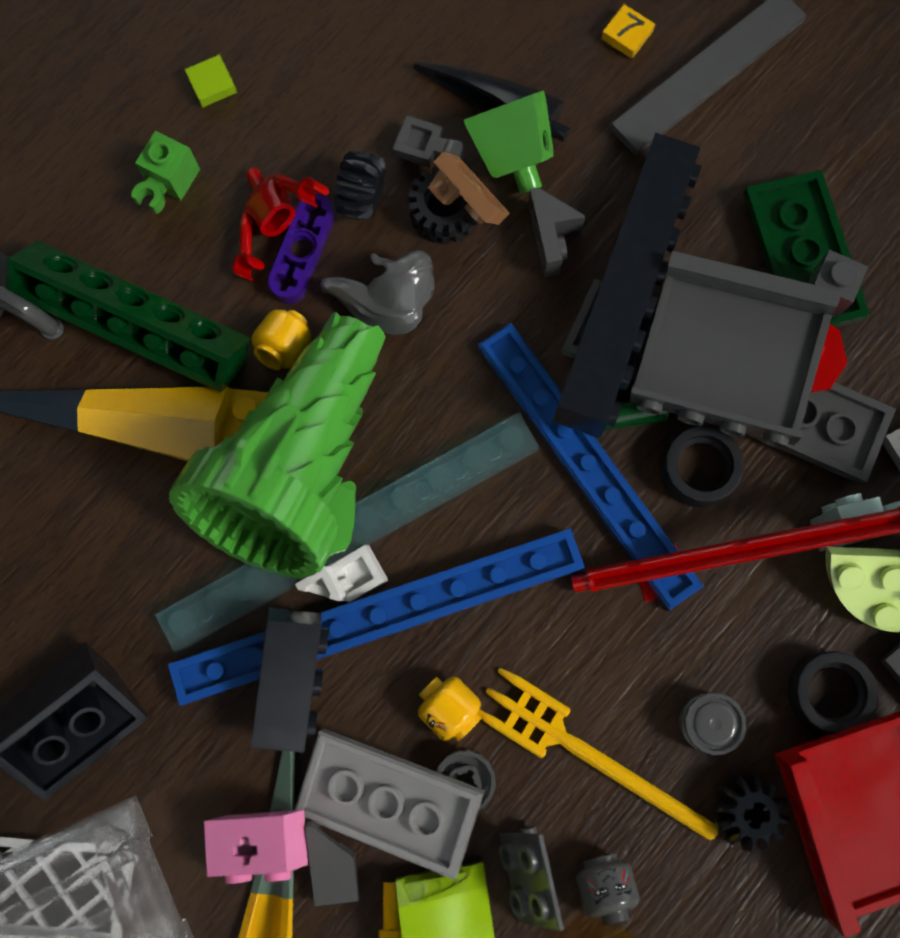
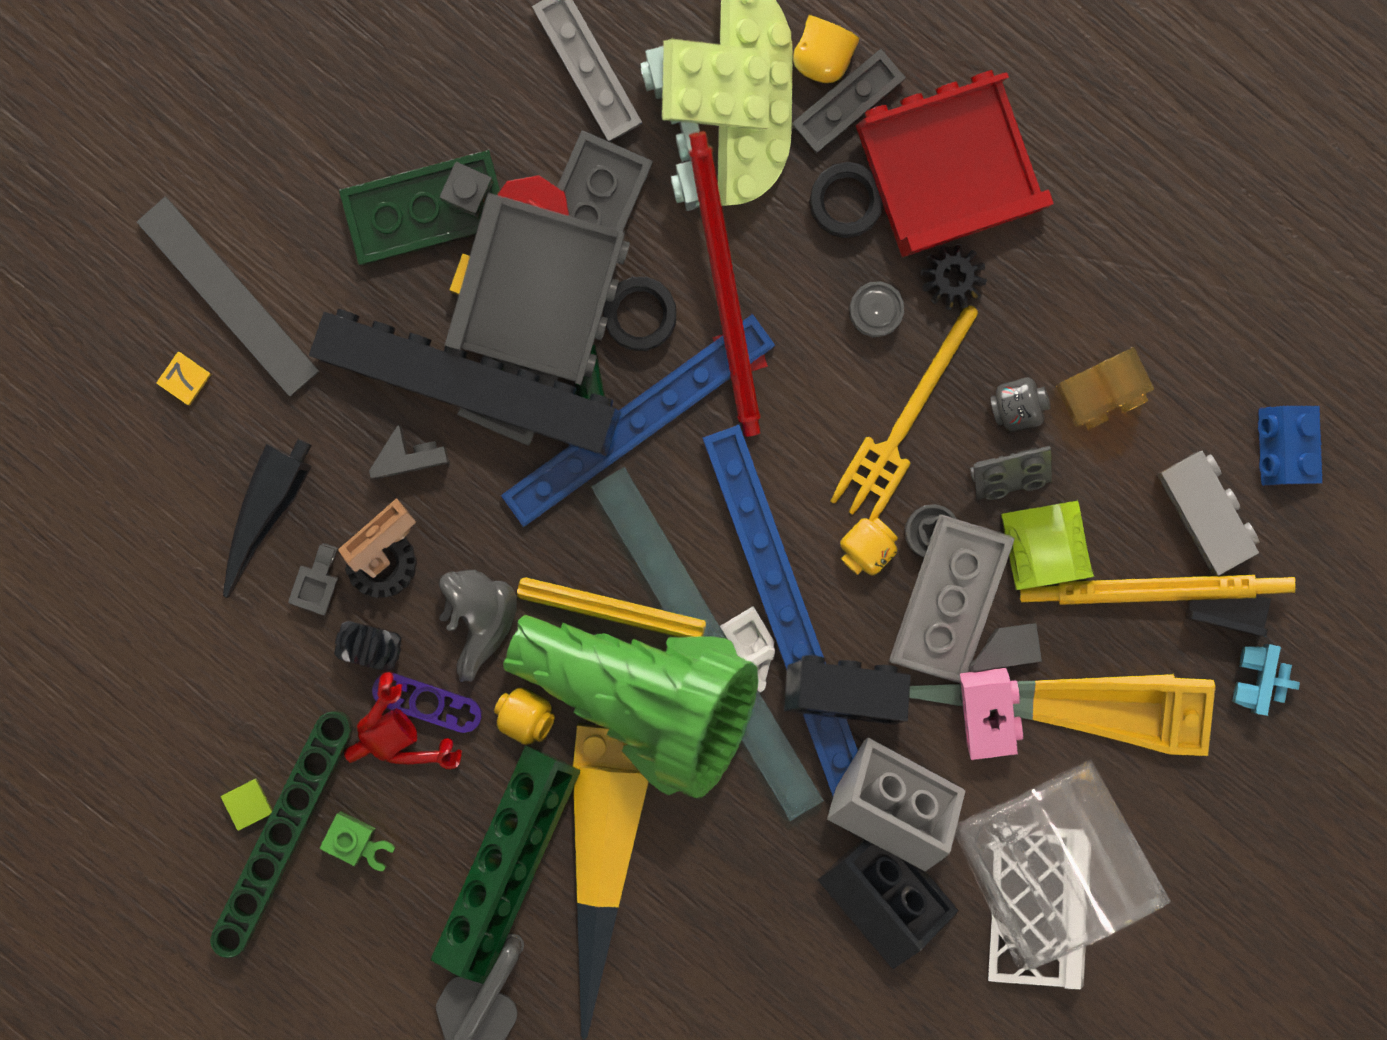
camera: 90 degrees left, 10 degrees up
(158, 735) = (897, 805): none -> light grey slope
(165, 94) = (279, 853): none -> dark green beam
(388, 430) = (610, 608): none -> yellow axle
(514, 139) = (317, 495): bright green torso -> none

